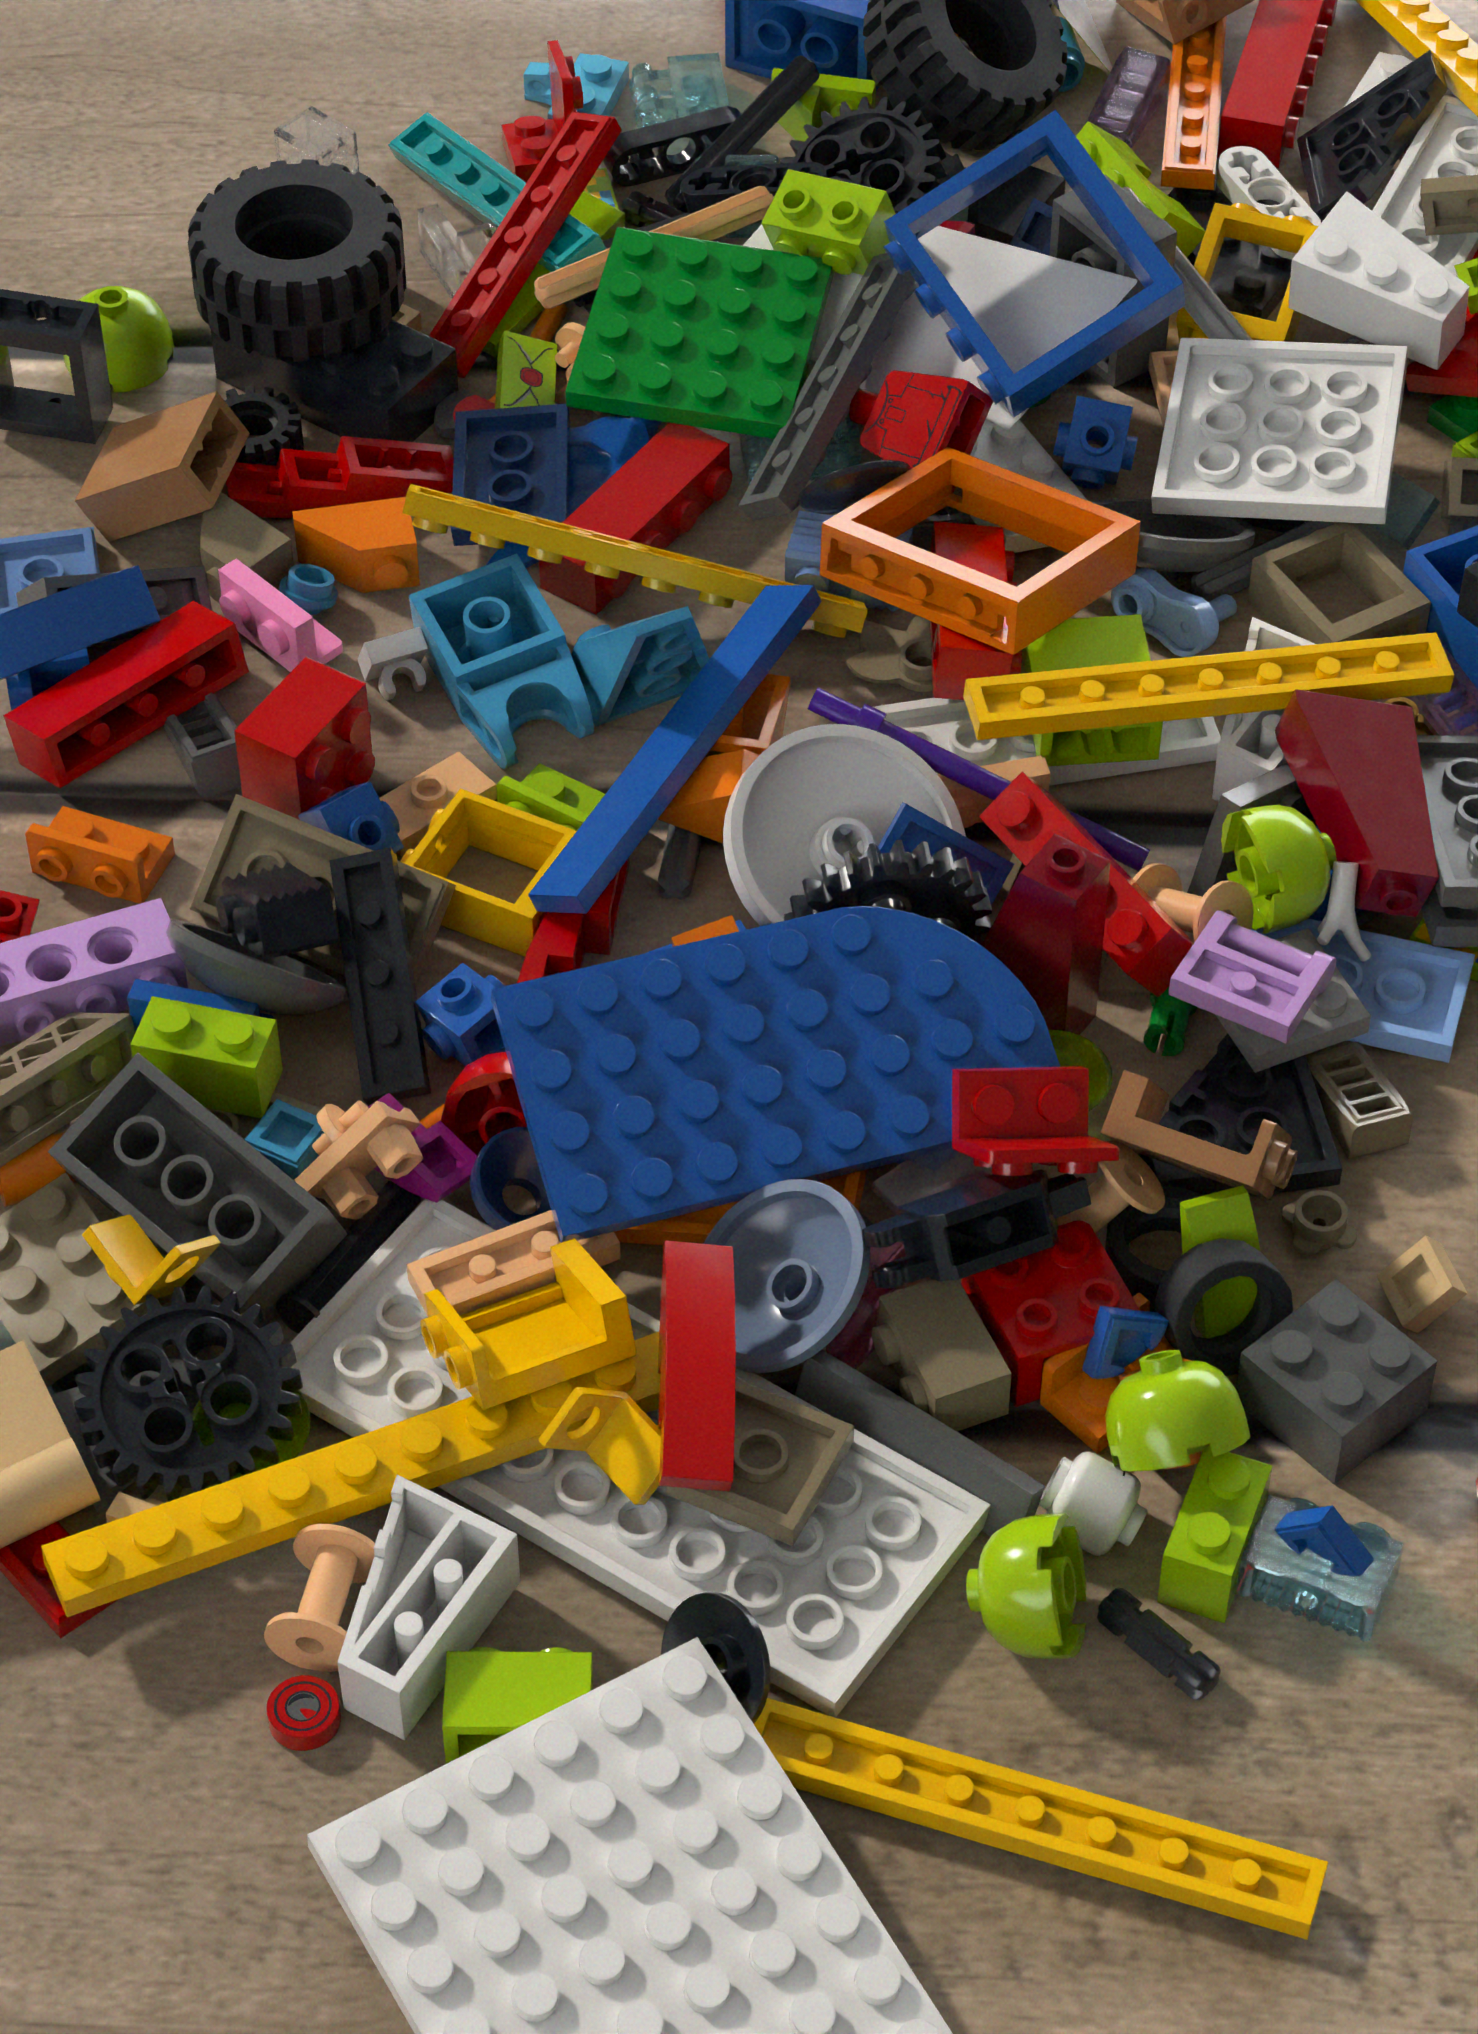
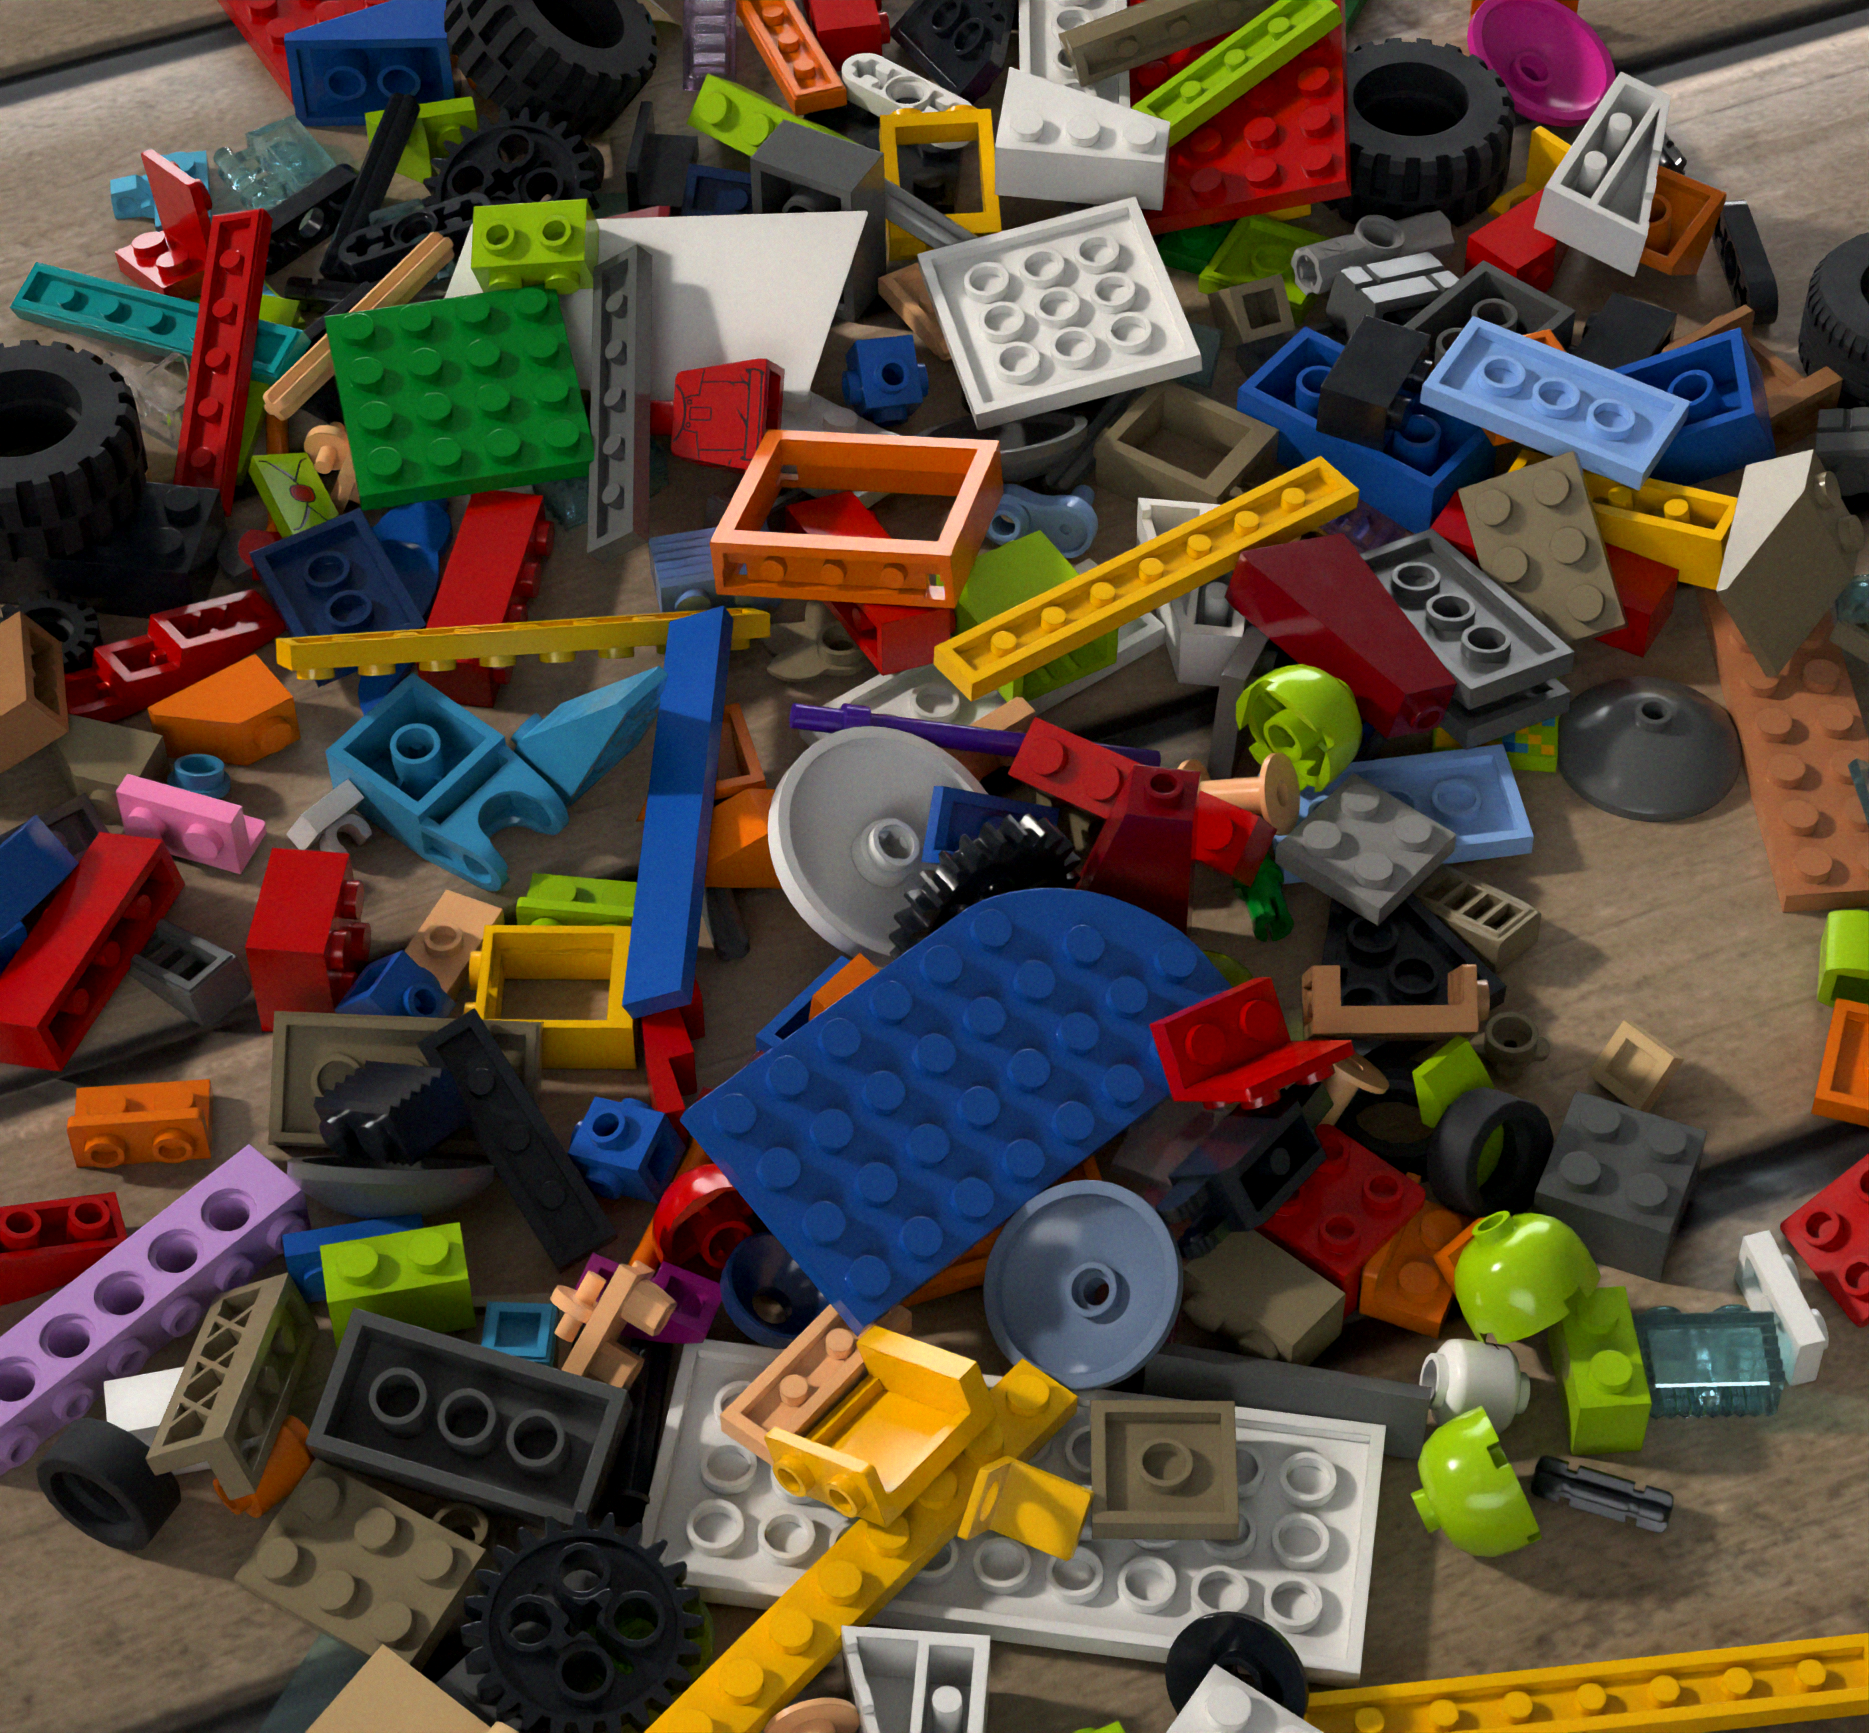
camera: 25 degrees left, 0 degrees up
(138, 1265) = (460, 1522): yellow bracket -> none
(697, 1366) = (1070, 1402): red slope -> none
(849, 485) = (701, 502): black dish -> none
(1084, 349) = (822, 152): blue window -> none
(1120, 1339) = (1419, 1221): blue tile -> none
(1250, 978) = (1343, 838): lavender plate -> none
(1326, 1535) = (1715, 1331): blue tile -> none
(1341, 910) = (1376, 747): white bar -> none
(1429, 1522) = (1773, 1284): none -> white plate

